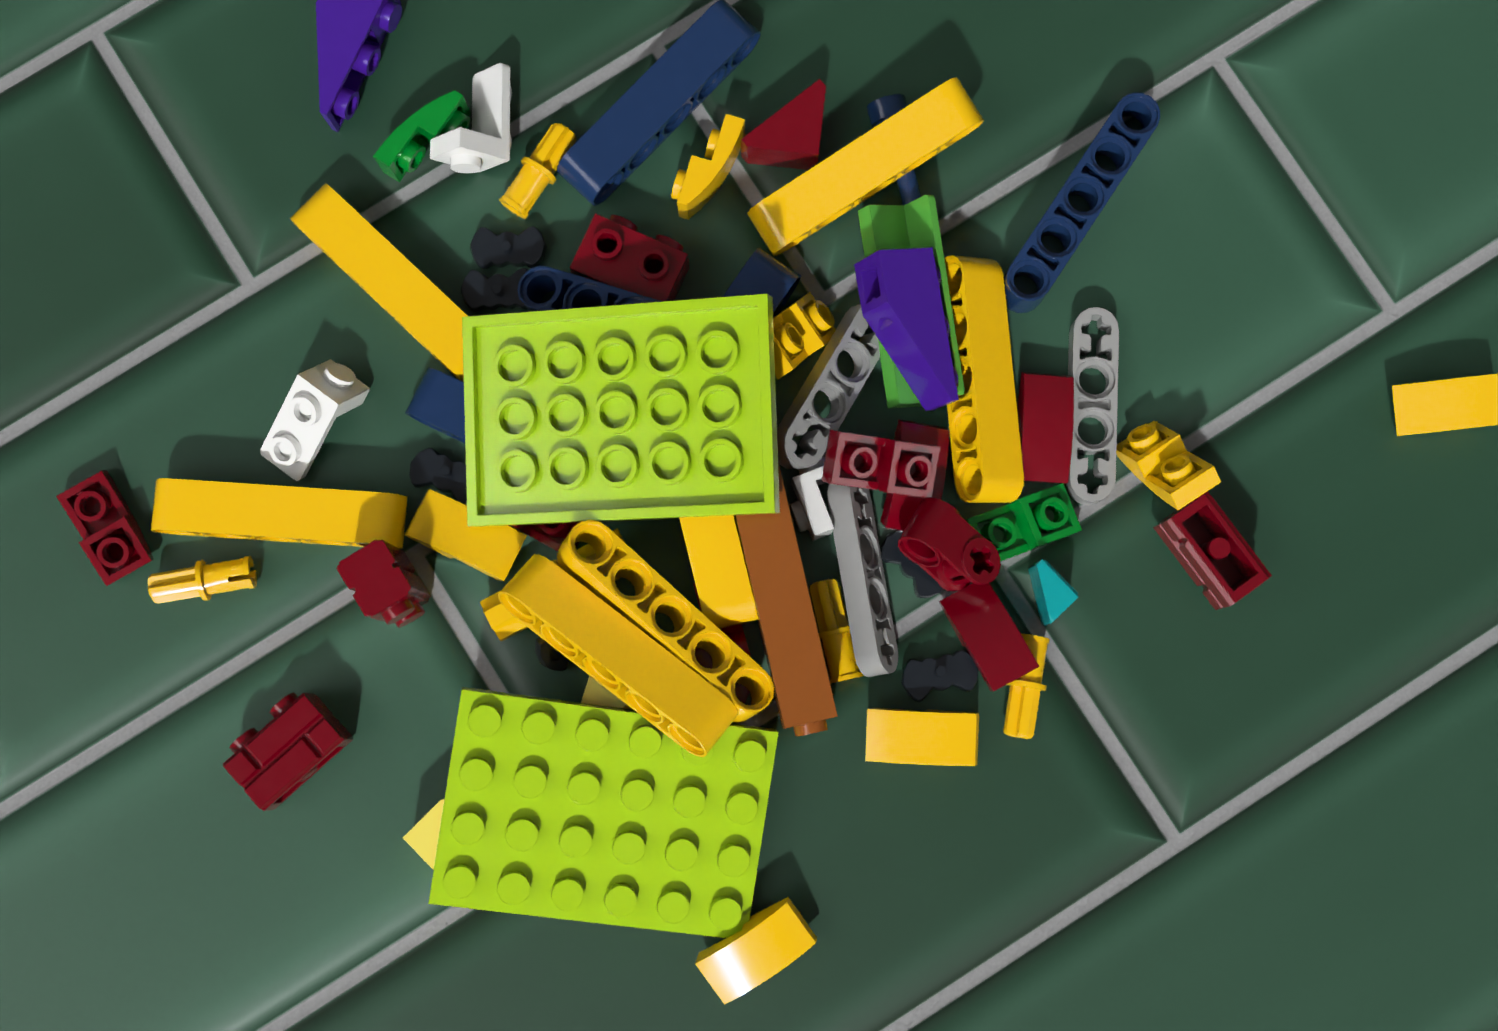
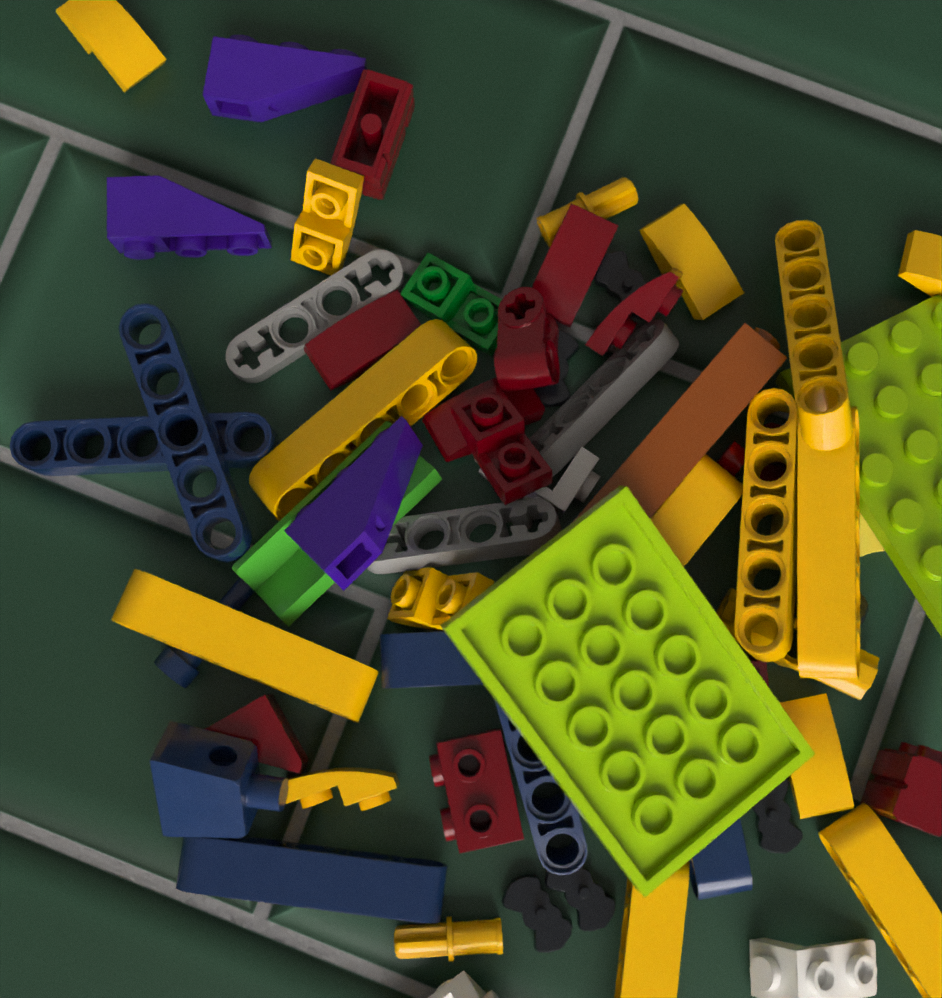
camera: 125 degrees left, 0 degrees up
(781, 69) = (210, 783): none -> dark blue torso
(790, 769) = (813, 336): none -> yellow beam
(834, 630) = (658, 392): yellow axle -> none
(912, 659) = (653, 297): none -> dark red slope
(1051, 591) = (500, 238): teal slope -> none
(1087, 219) = (167, 414): none -> dark blue beam
(1265, 335) = (162, 216): none -> dark purple slope
(1316, 507) = (270, 80): none -> dark purple slope

